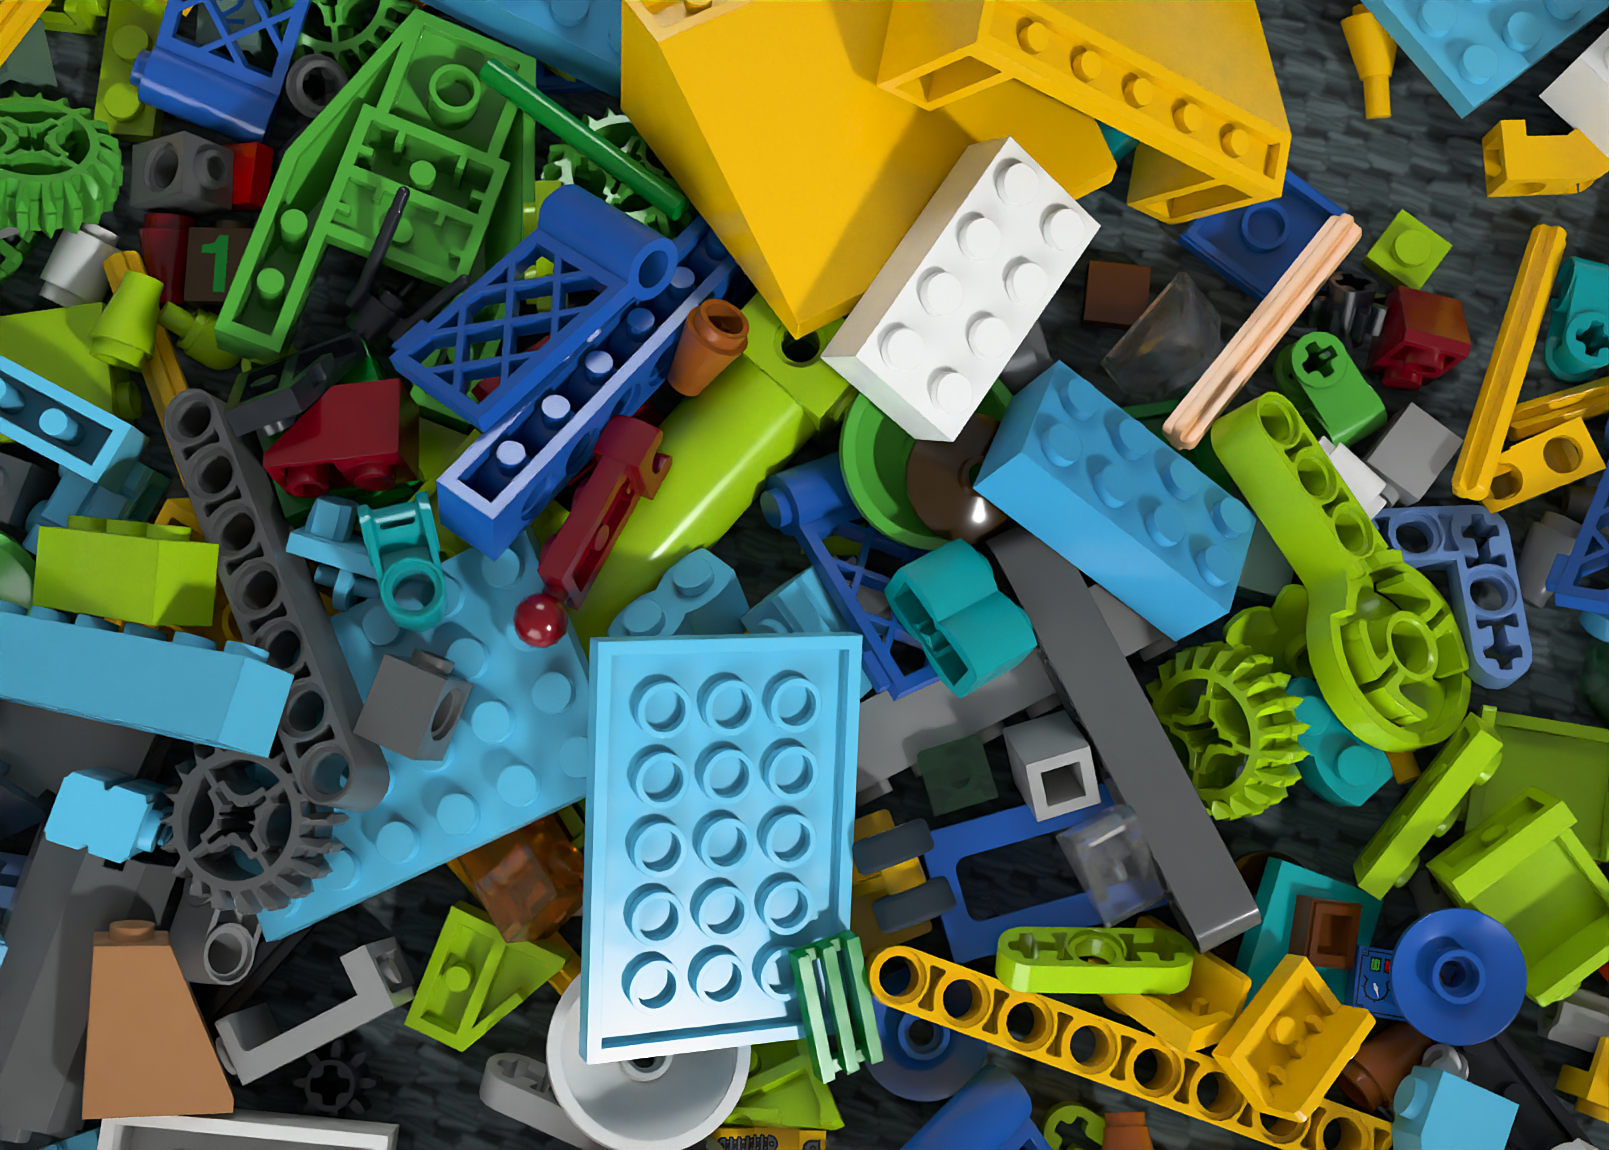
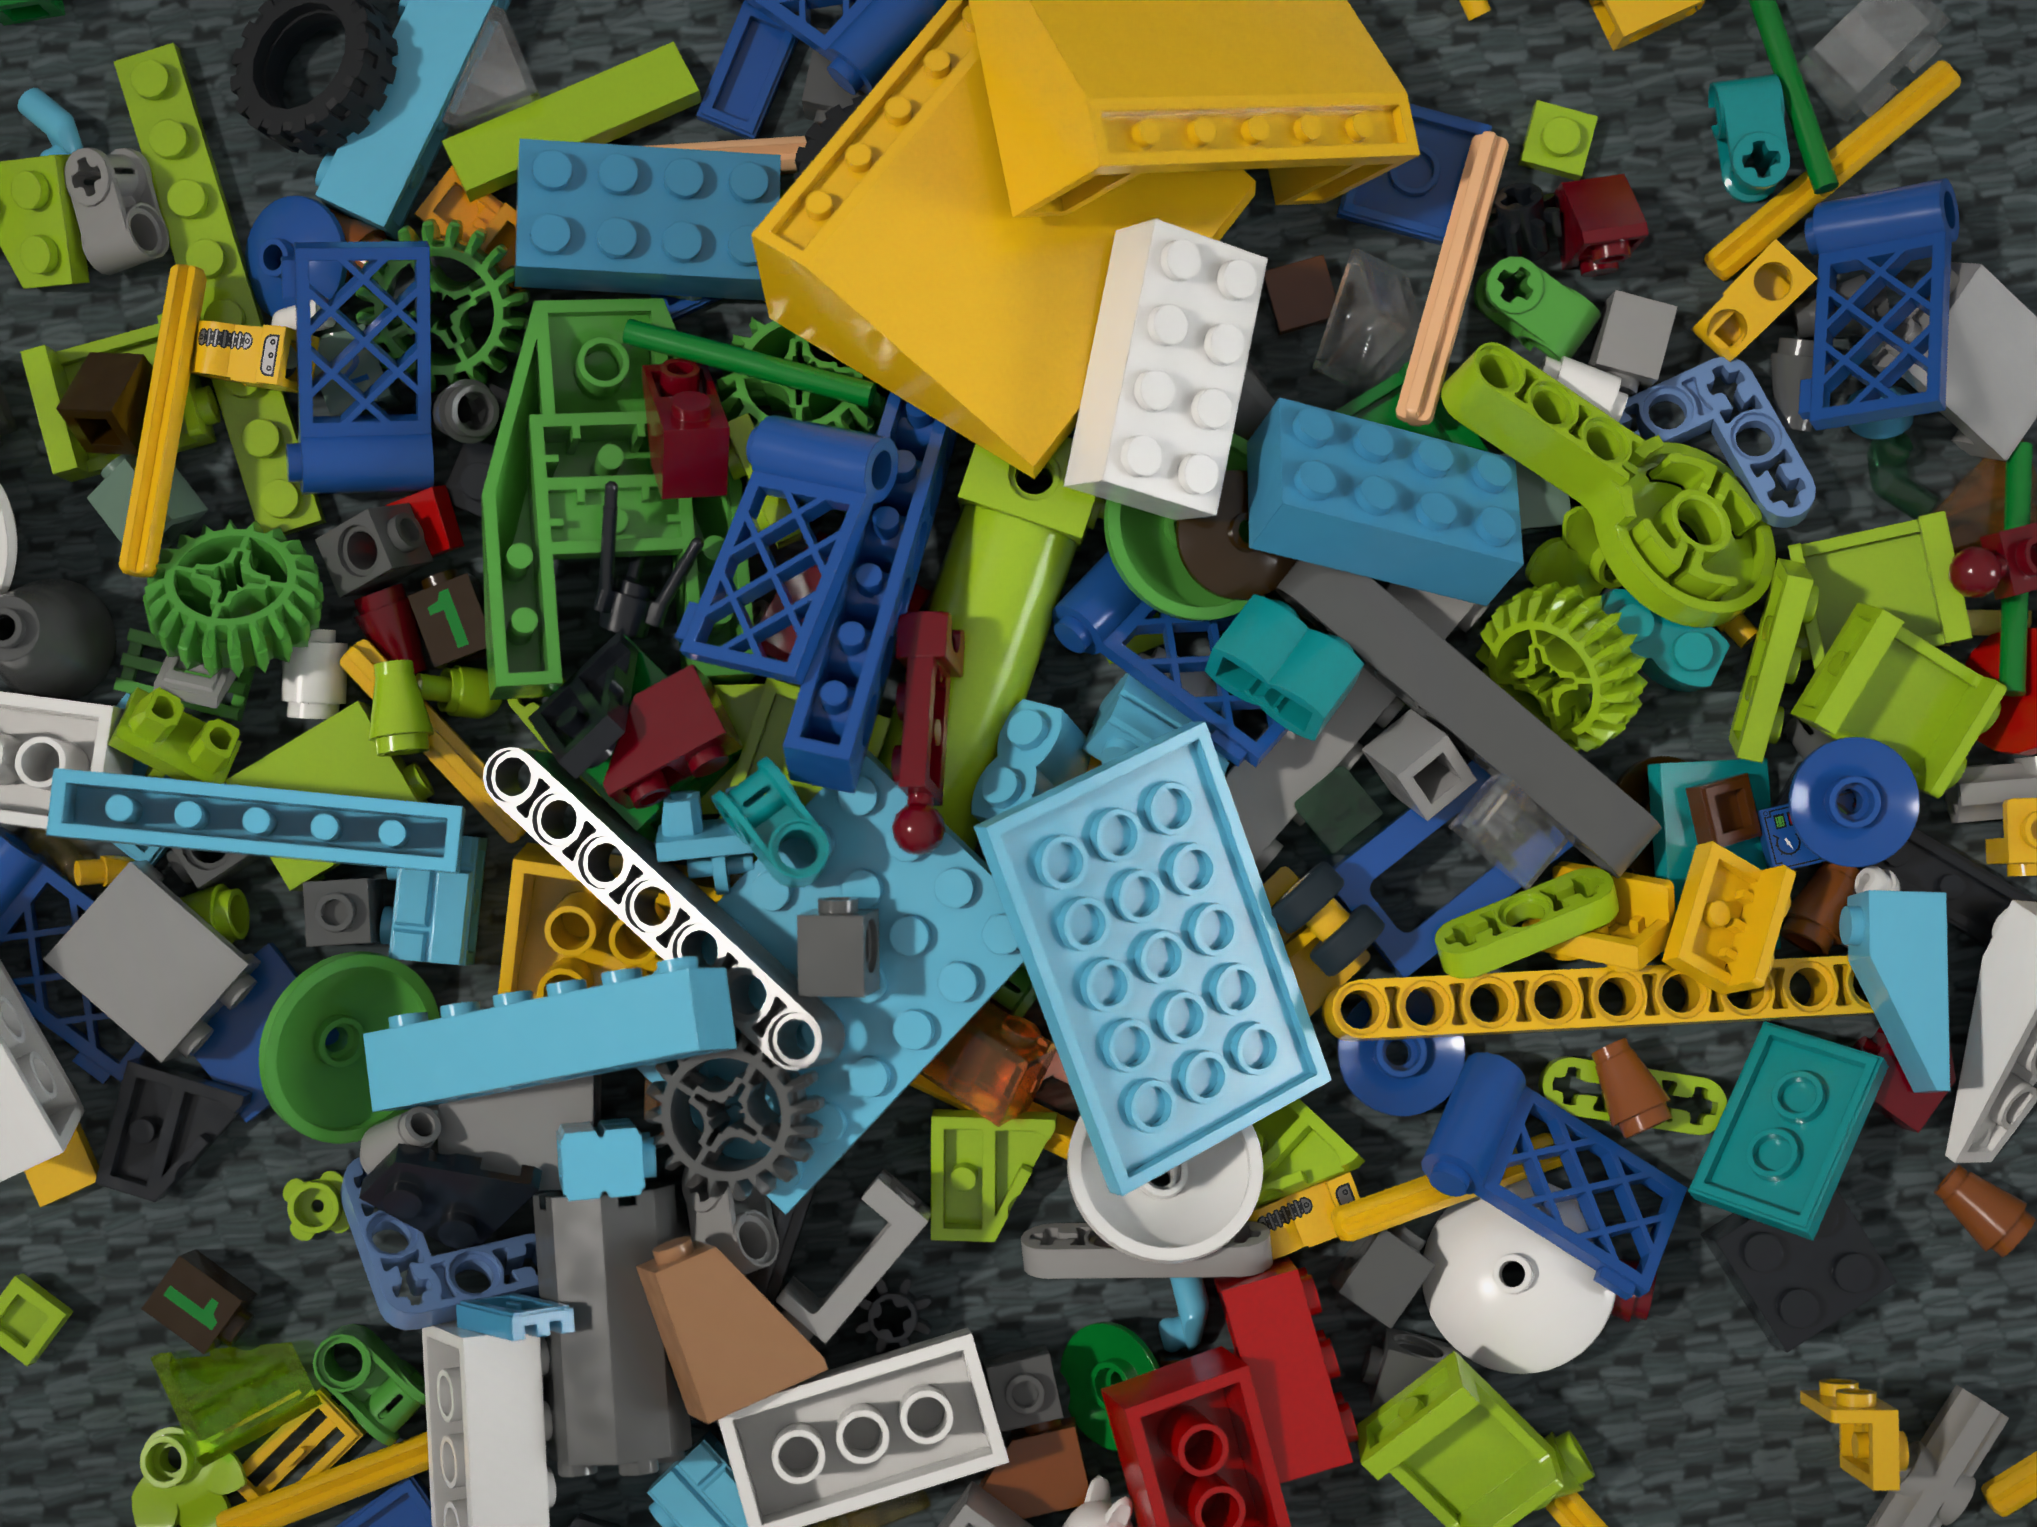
camera: 20 degrees left, 5 degrees up
(126, 571) = (516, 940): lime brick -> none
(497, 174) = (686, 430): none -> dark red slope
(708, 345) = (954, 513): dark orange cone -> none
(848, 1053) = (1356, 1080): tile -> none
(1508, 363) = (1692, 210): yellow axle -> none

